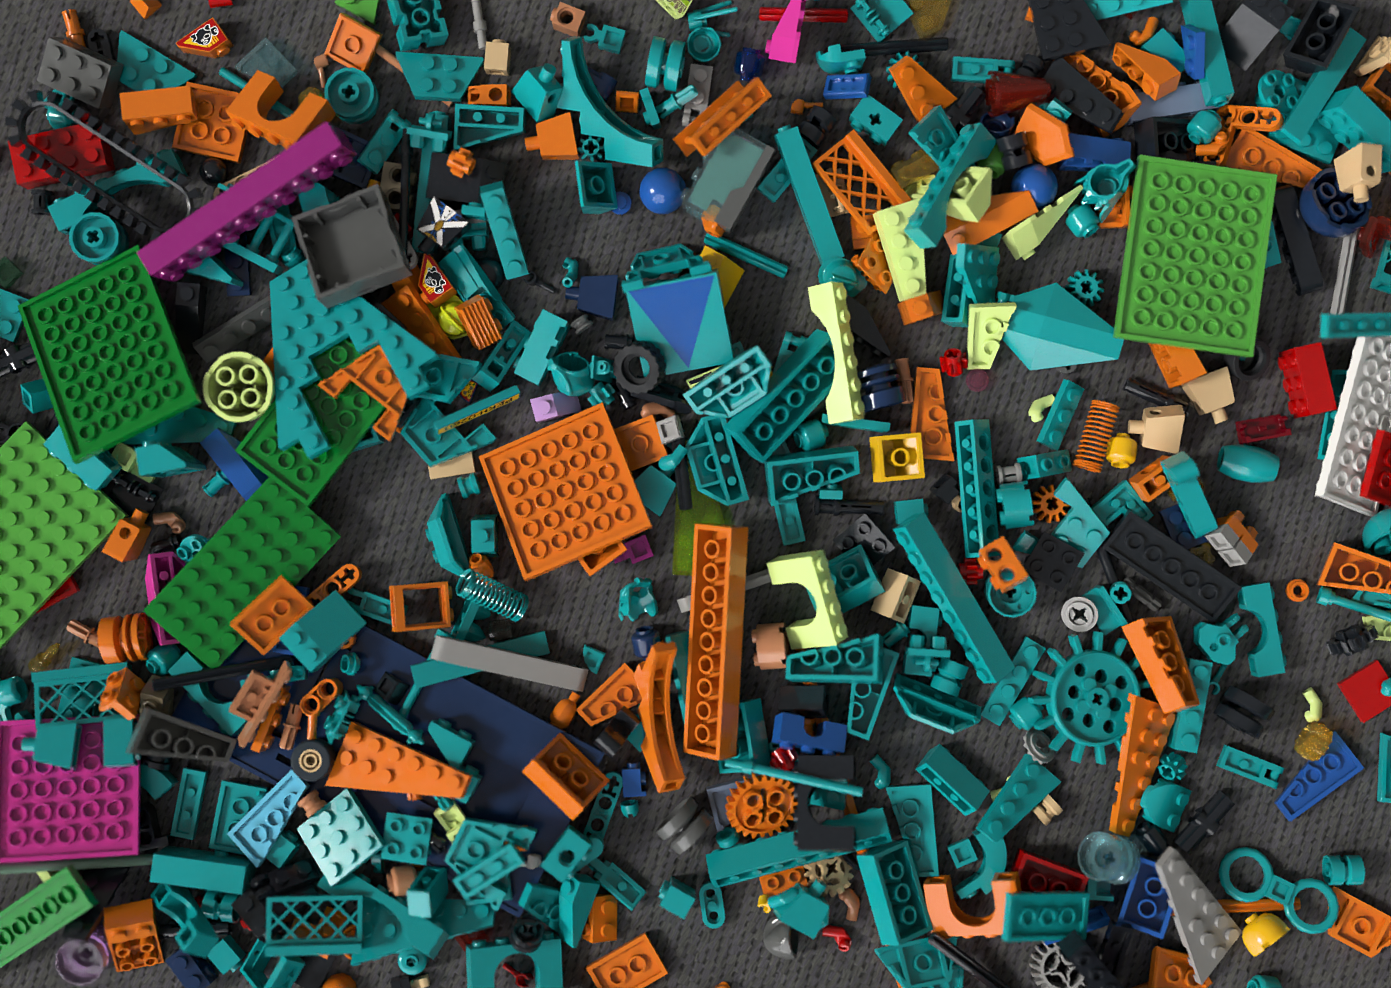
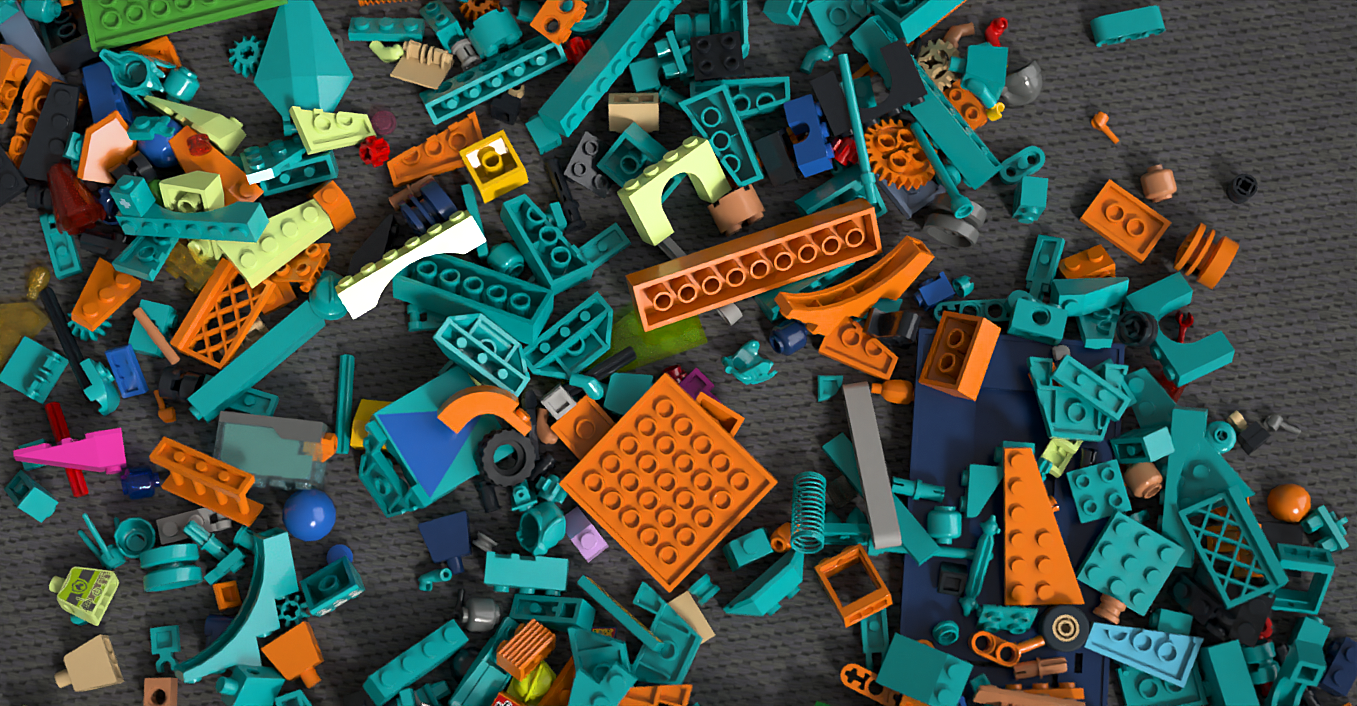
camera: 110 degrees left, 10 degrees down
(434, 701) = (944, 524): none -> teal head
(472, 691) = (917, 489): none -> teal pin
(524, 297) = (479, 614): none -> dark grey head
(655, 534) = (675, 372): none -> dark red plate
(667, 133) = (245, 538): none -> teal bush
(688, 833) = (960, 205): none -> teal piece
(690, 365) = (483, 400): none -> orange arch
(864, 120) = (156, 336): none -> nougat piece
(909, 686) = (717, 56): none -> black hinge
(957, 40) = (37, 280): none -> clear yellow cylinder
(990, 142) = (132, 195): none -> teal brick
(1012, 432) = (423, 66): none -> tan hinge
(1013, 215) = (199, 144): none -> clear red bush
(1049, 175) = (146, 127): none -> teal plate

